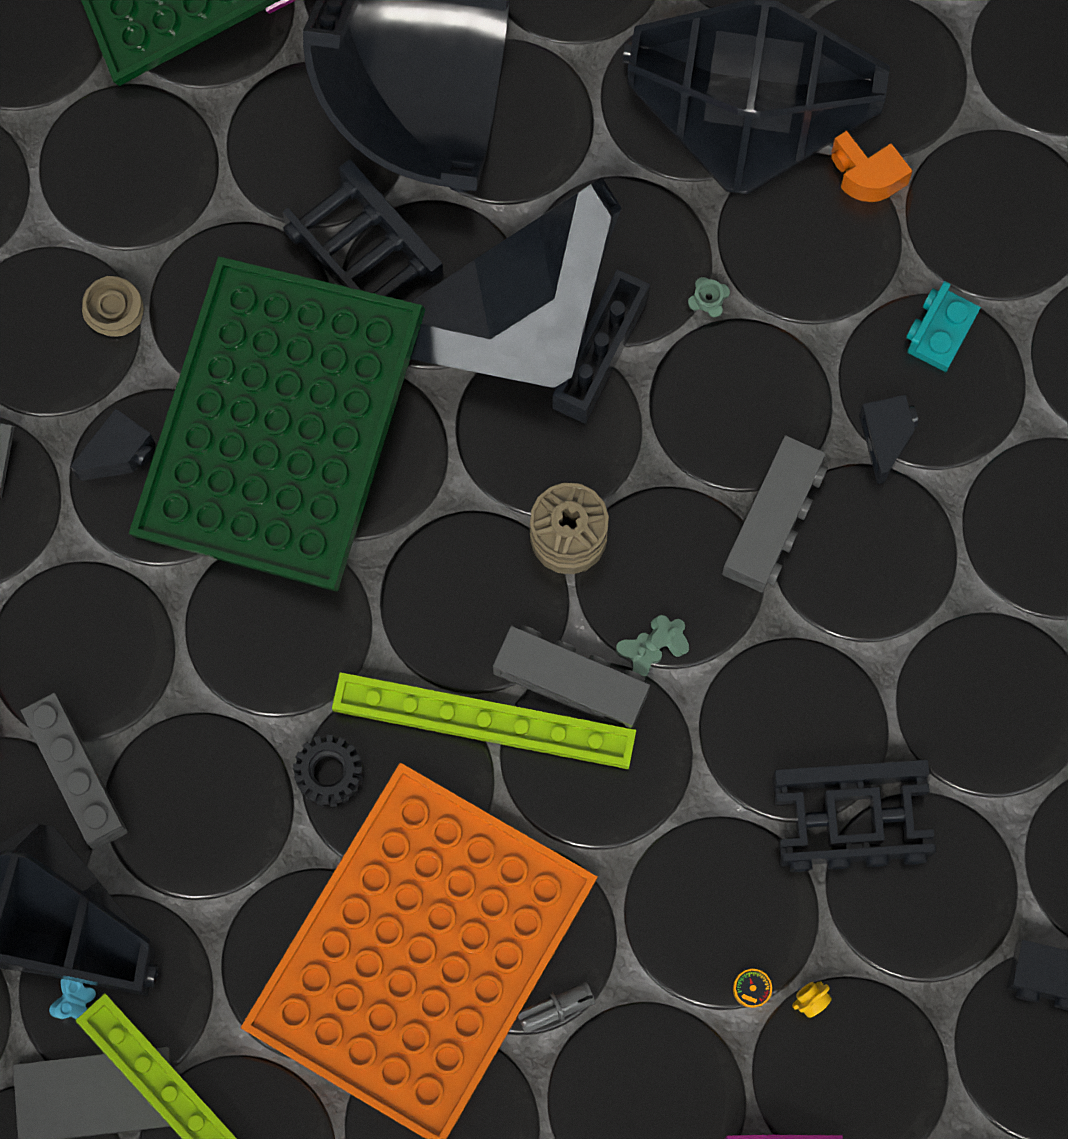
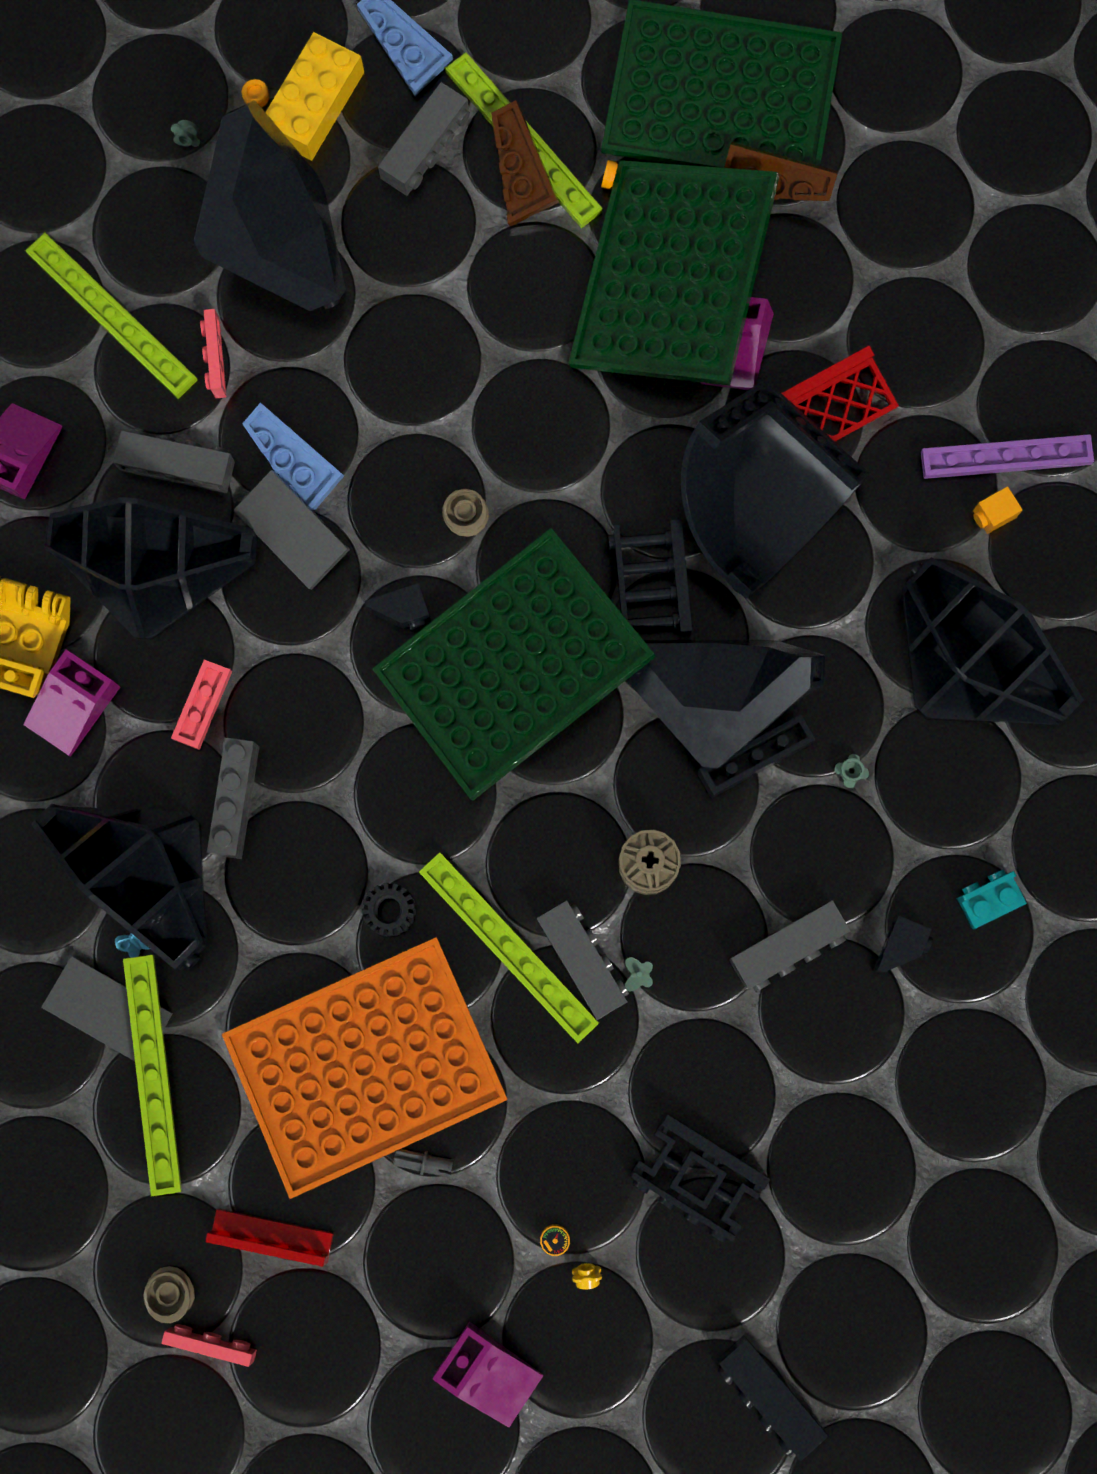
camera: 40 degrees right, 5 degrees up
(669, 635) = (664, 974): sand green piece -> none
(871, 177) = (1016, 766): orange brick -> none

